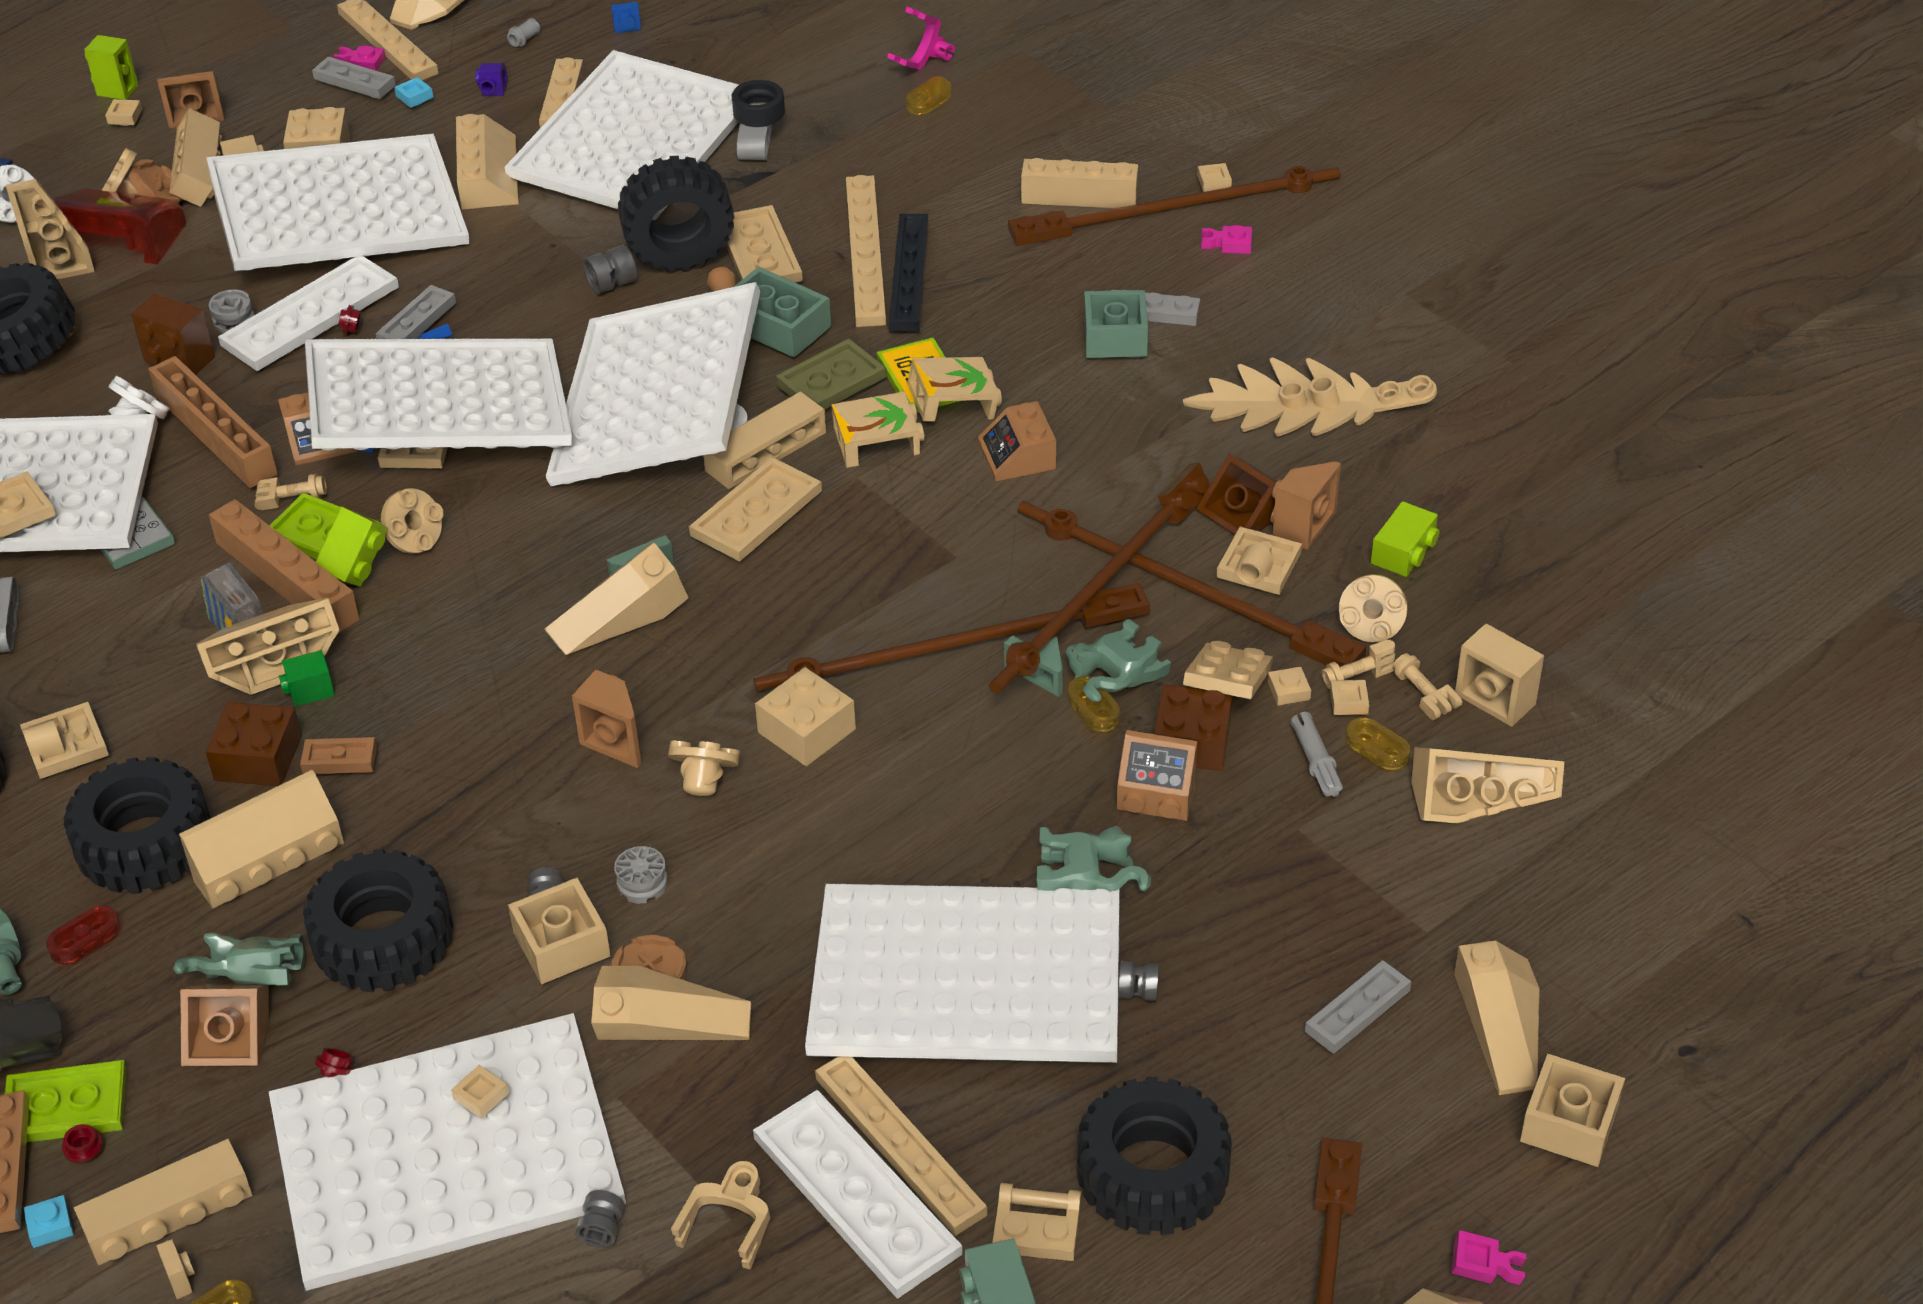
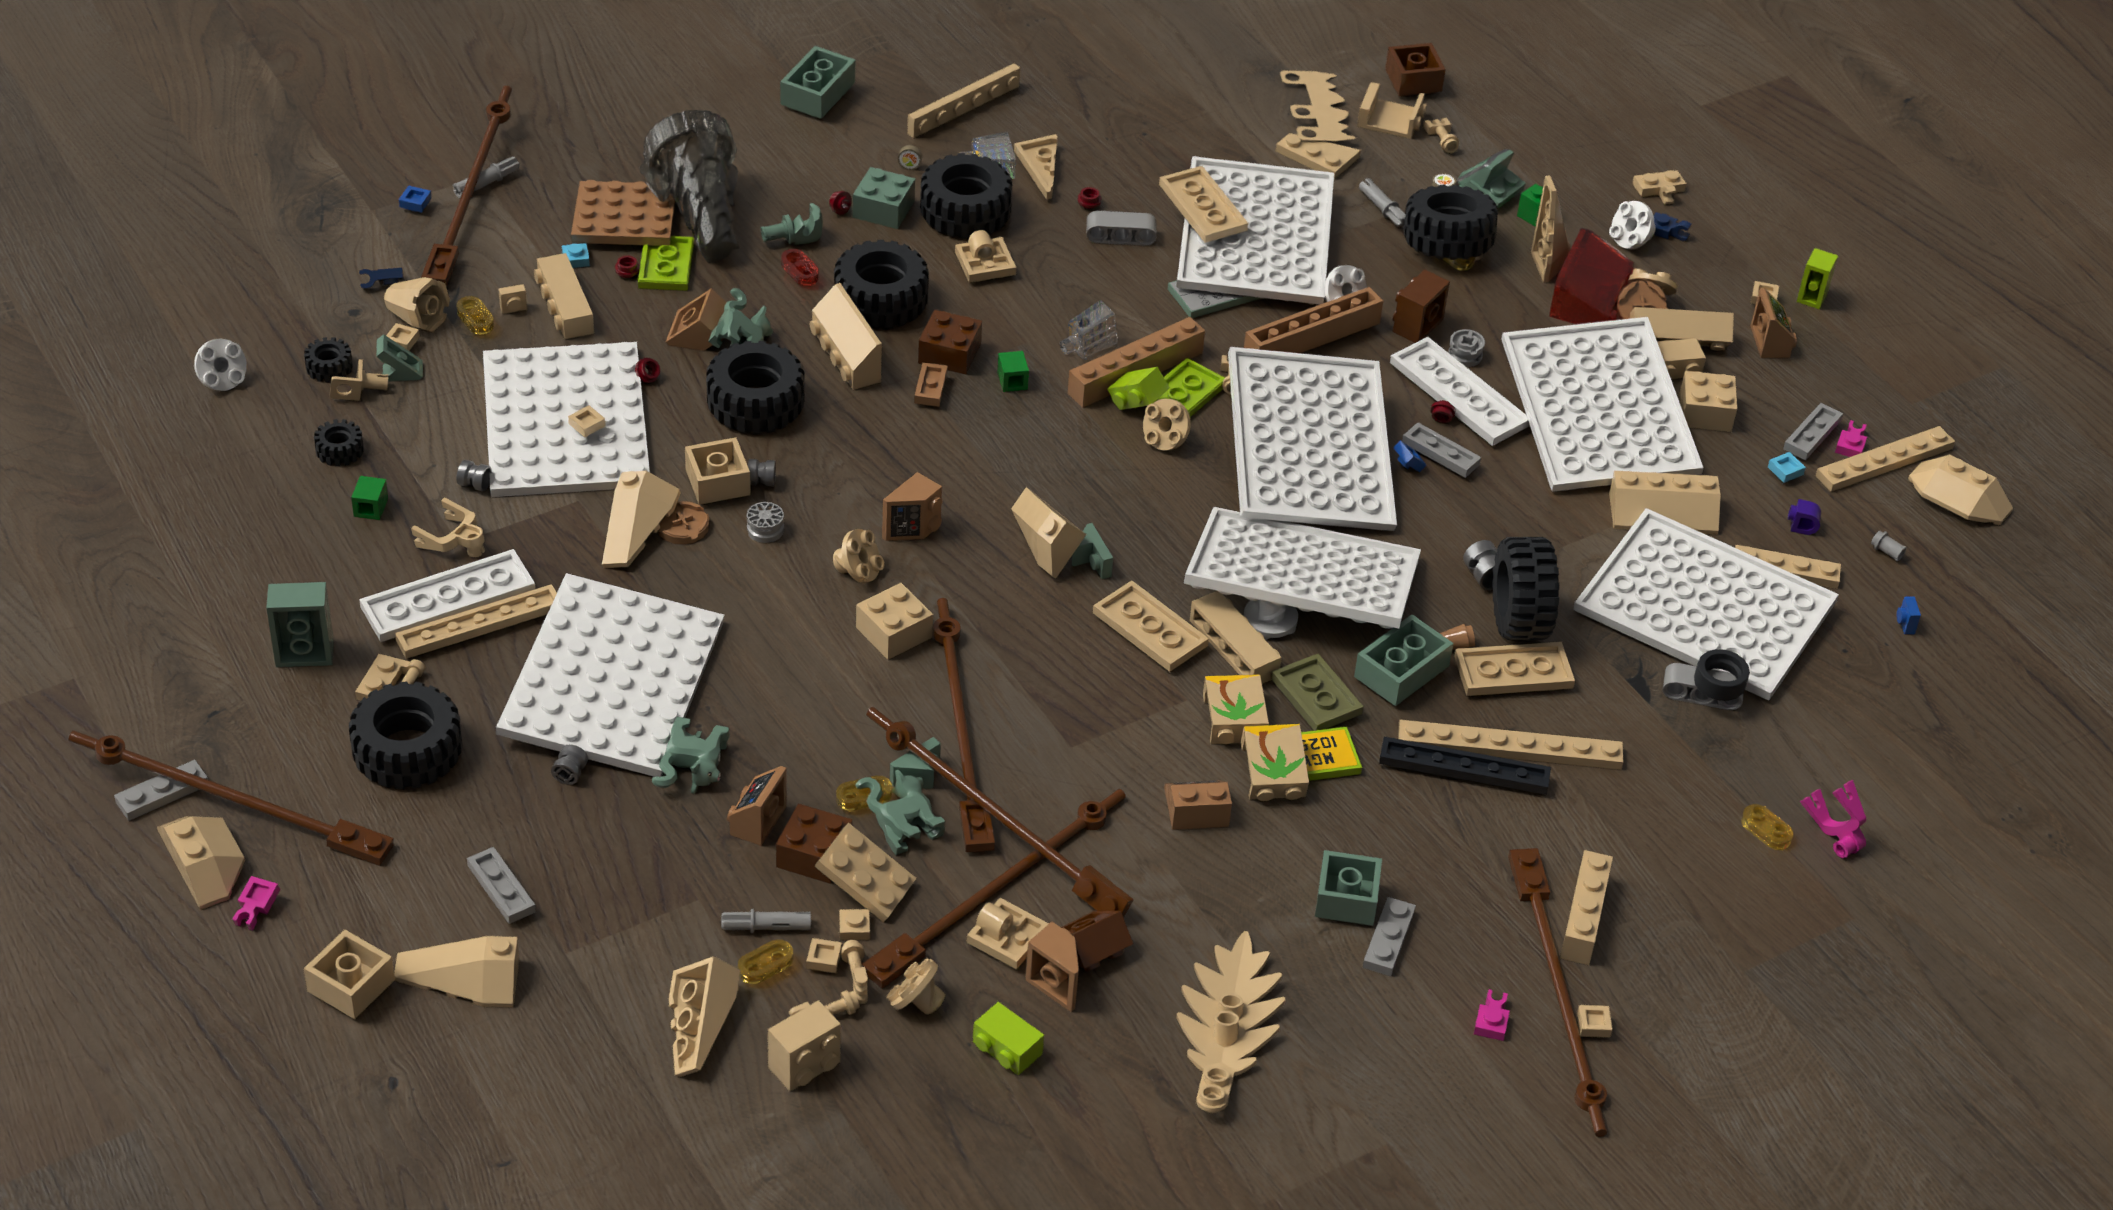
camera: 95 degrees right, 0 degrees up
(252, 651) = (1040, 339): tan wedge -> none

